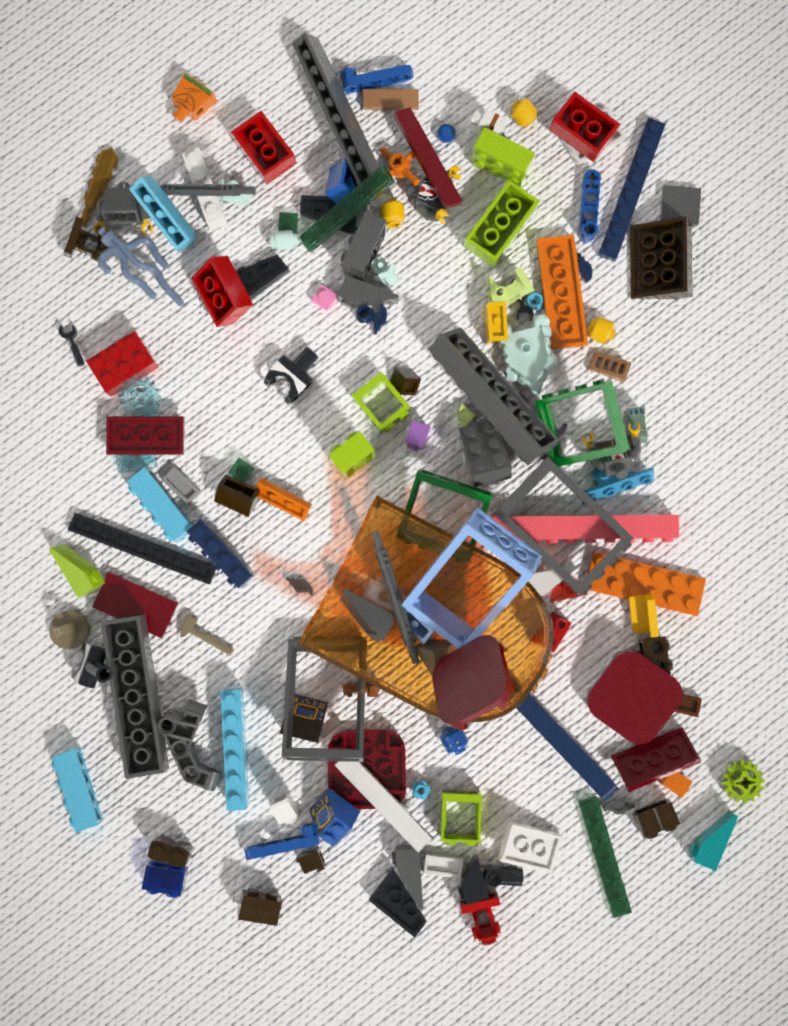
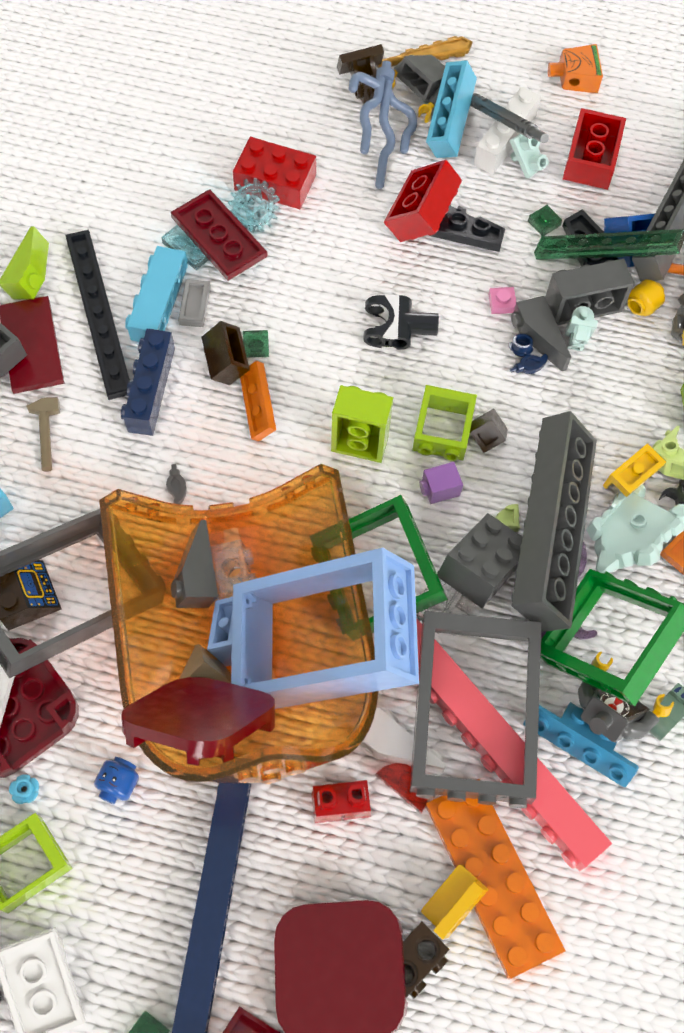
camera: 50 degrees right, 20 degrees down
(74, 347) = (264, 120): black piece -> none
(284, 240) = (524, 225): light aqua brick -> none
(349, 689) = (107, 642): dark orange bar -> none
(395, 597) = (240, 574): dark grey axle -> none

